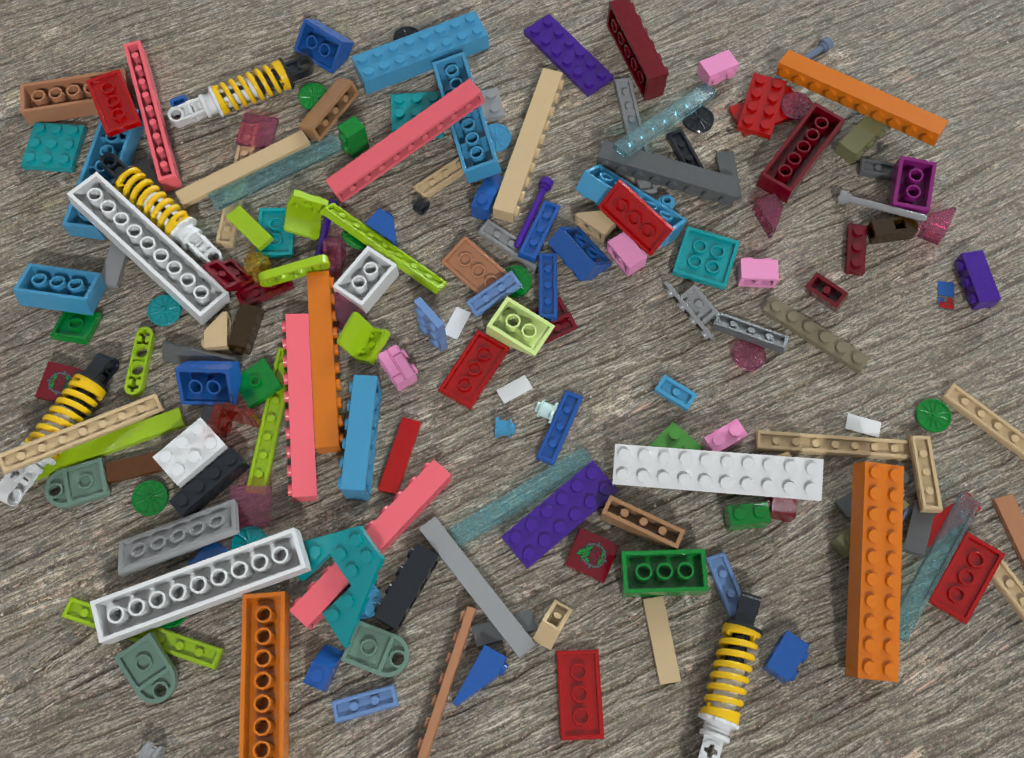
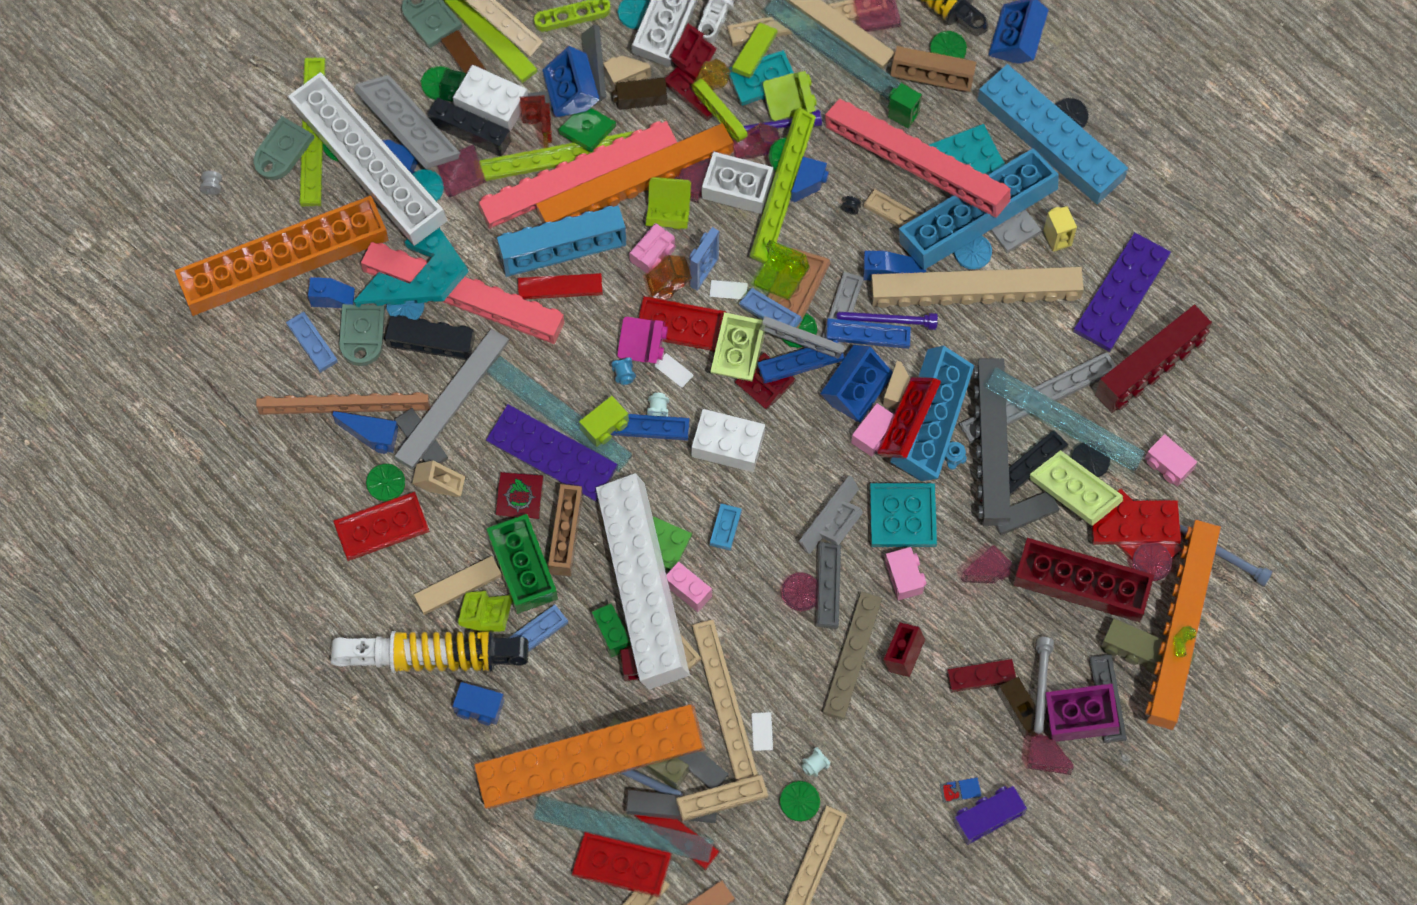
camera: 70 degrees right, 0 degrees up
(160, 484) = (450, 84): none -> dark green bracket
(434, 360) = (668, 277): none -> clear orange brick
(462, 272) = (782, 270): none -> clear neon green bracket
(482, 401) = (642, 340): none -> dark pink bracket
(504, 70) = (1059, 228): none -> light yellow brick
(527, 280) = (801, 337): none -> light grey tile
(537, 676) = (385, 482): none -> green wheel
(549, 457) = (603, 421): none -> lime brick
(599, 364) = (728, 440): none -> white brick
(699, 622) = (485, 612): none -> lime slope
(725, 130) = (1076, 487): none -> yellowish green plate
(881, 95) = (1185, 634): none -> clear neon green arm
(905, 391) = (815, 763): none -> light aqua brick

